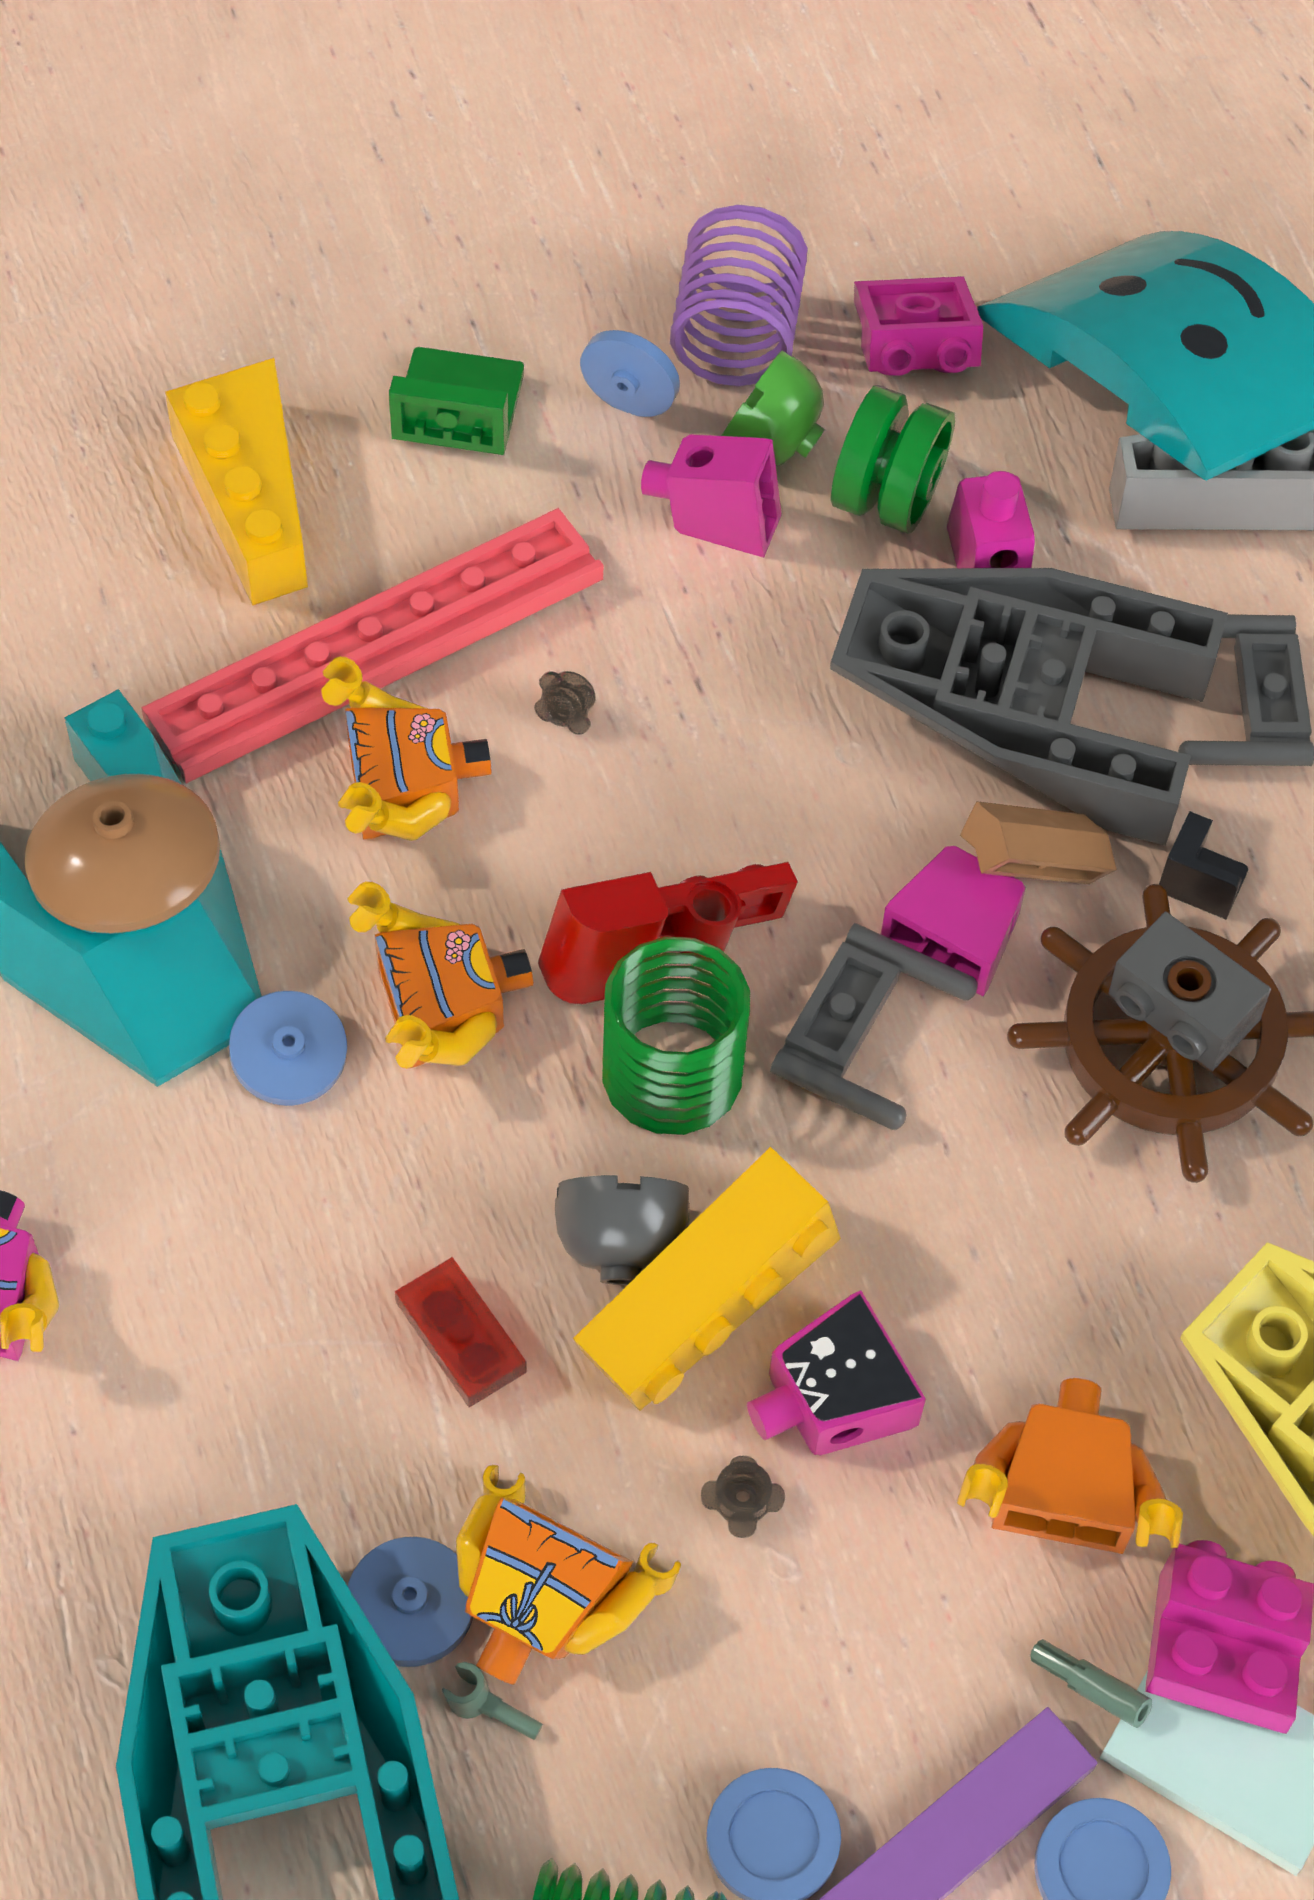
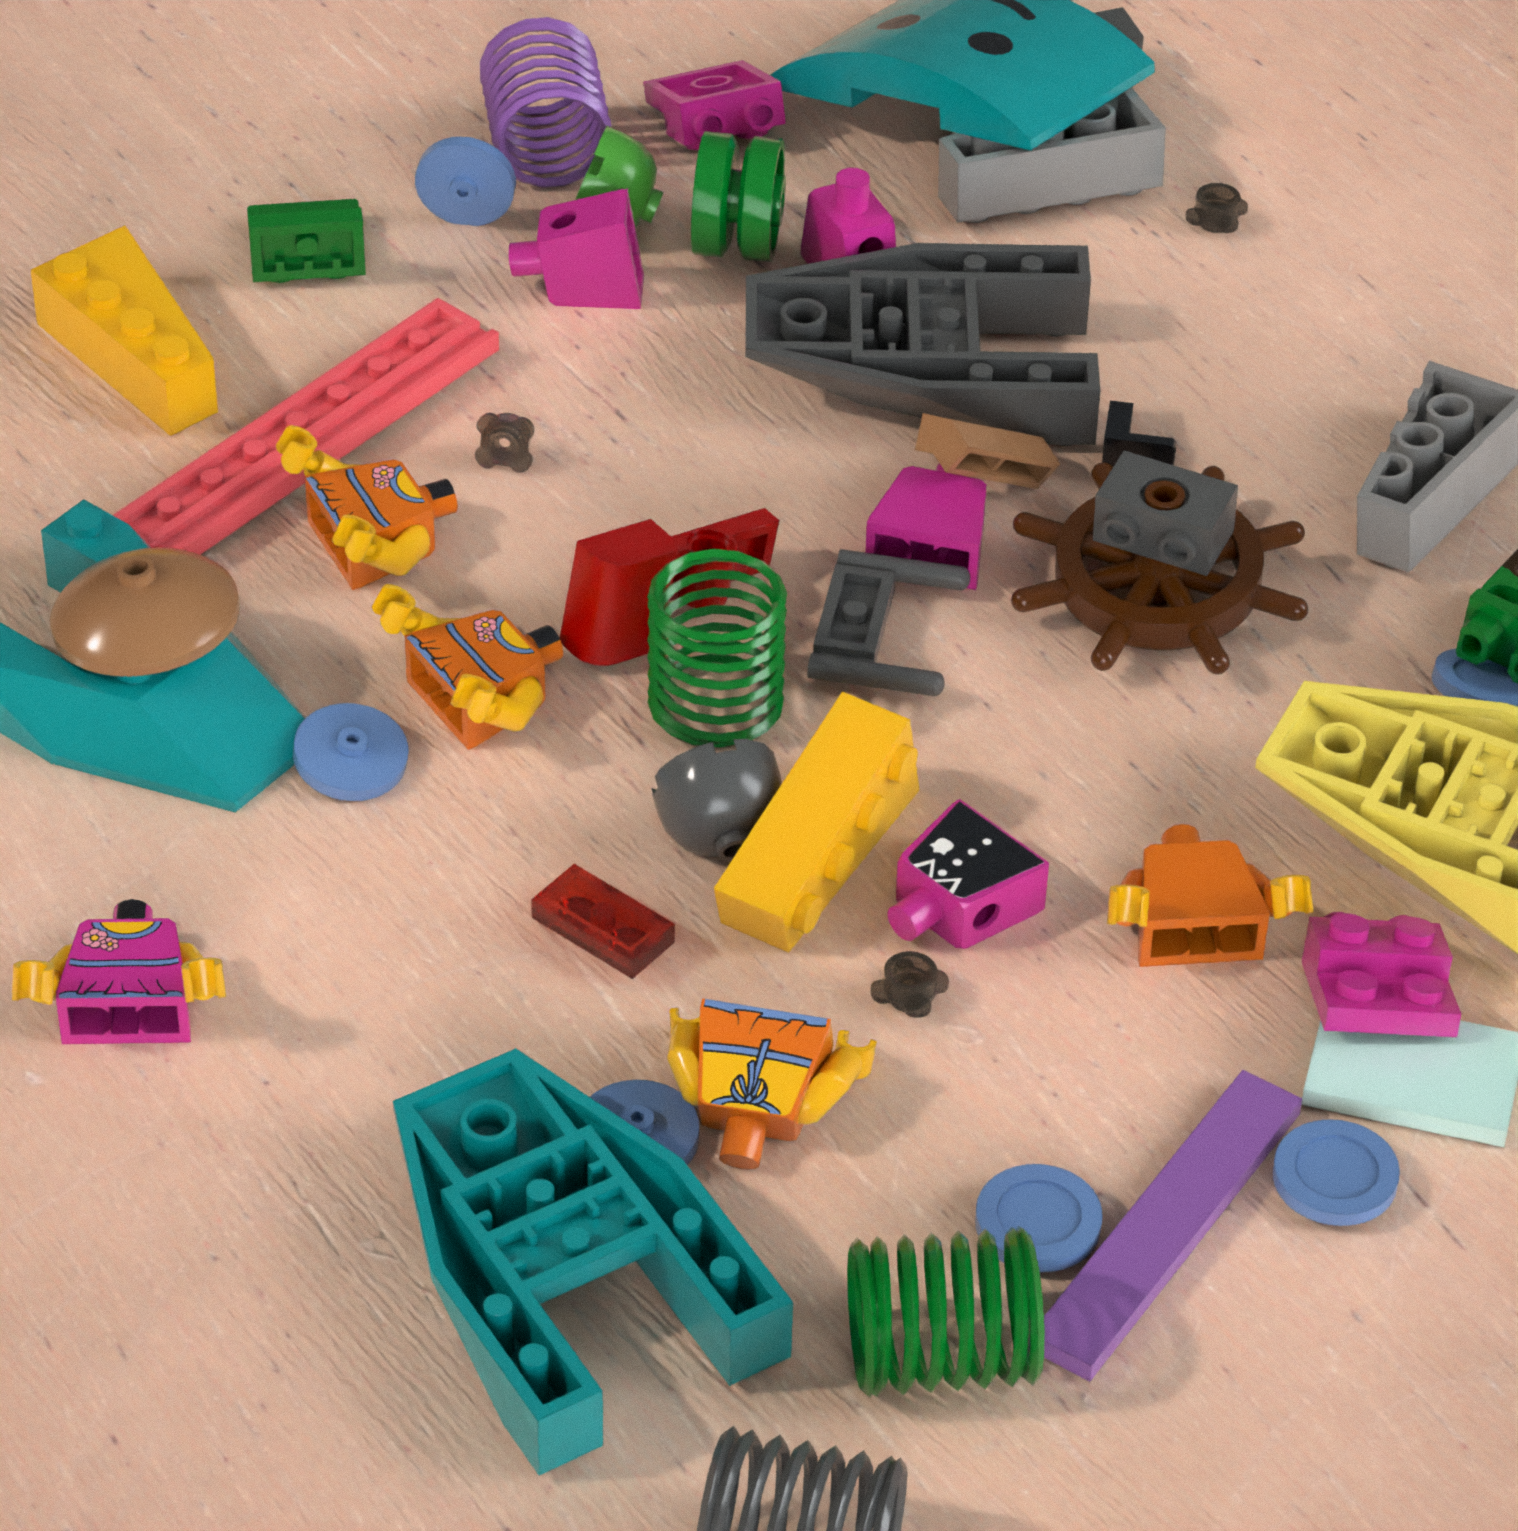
camera: 15 degrees left, 15 degrees down
(485, 1702) = (726, 1186): sand green hand -> none
(1093, 1683) = (1276, 1043): sand green piece -> none
(1270, 695) = (1145, 315): dark grey plate -> none

